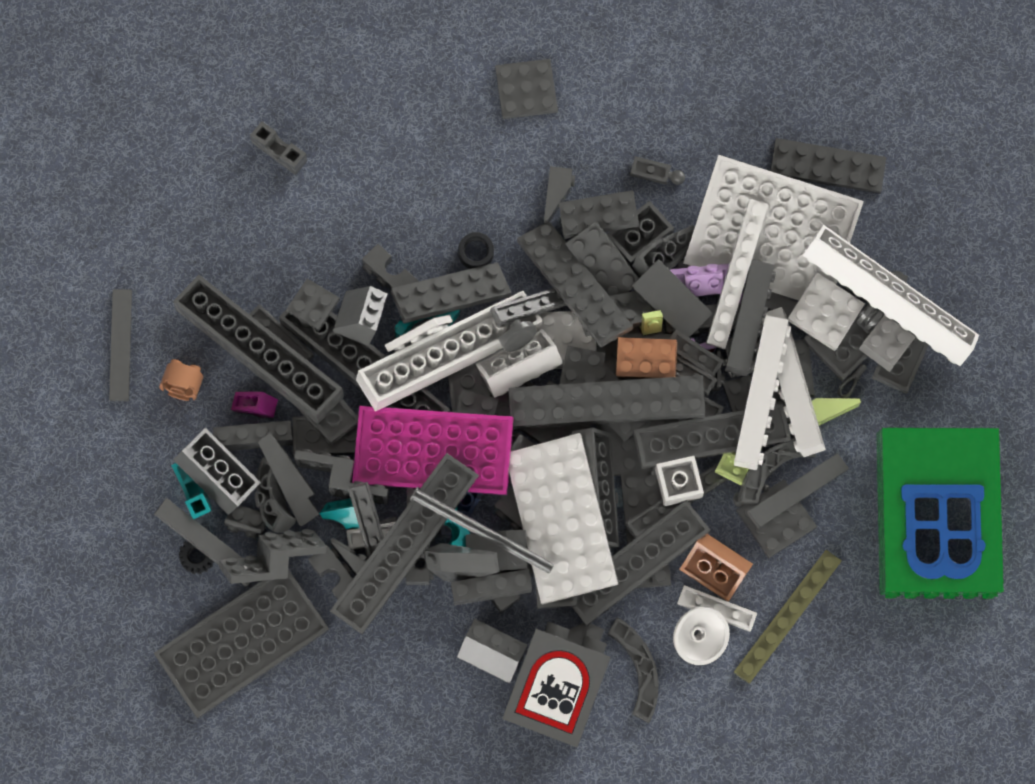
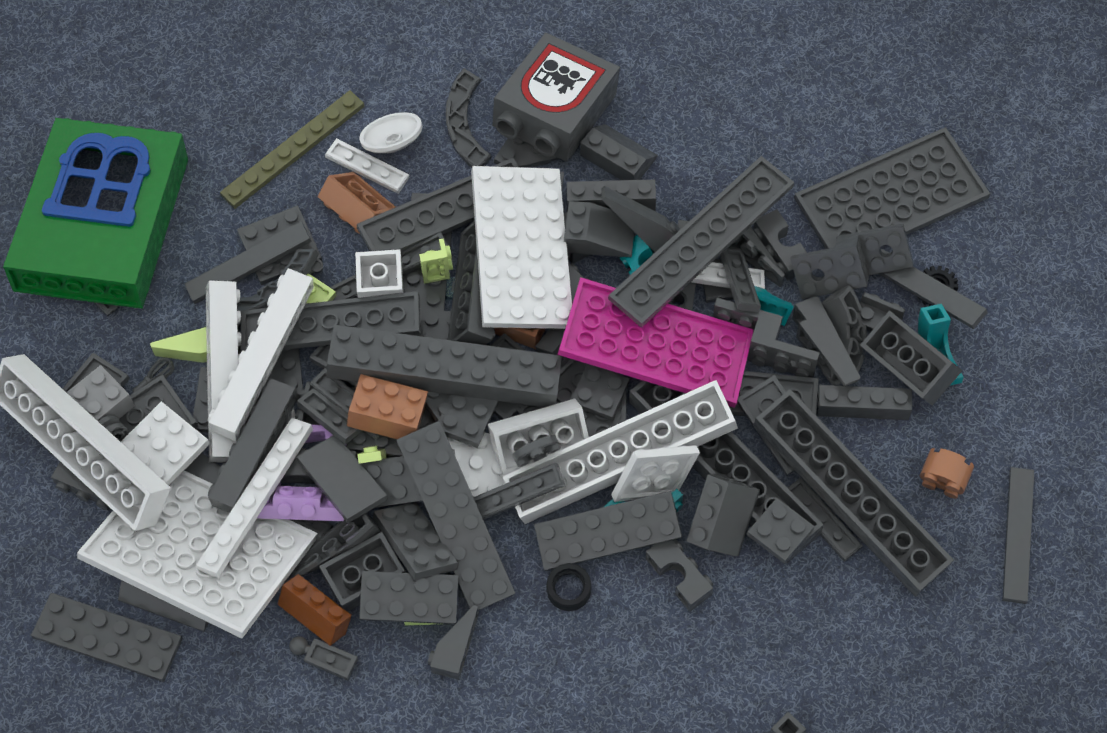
camera: 165 degrees left, 10 degrees down
(255, 403) = (861, 438): magenta arch -> none
(482, 531) = (615, 236): axle -> none
(632, 501) = (436, 264): none -> yellowish green bracket
(671, 201) = (314, 609): none -> dark orange brick

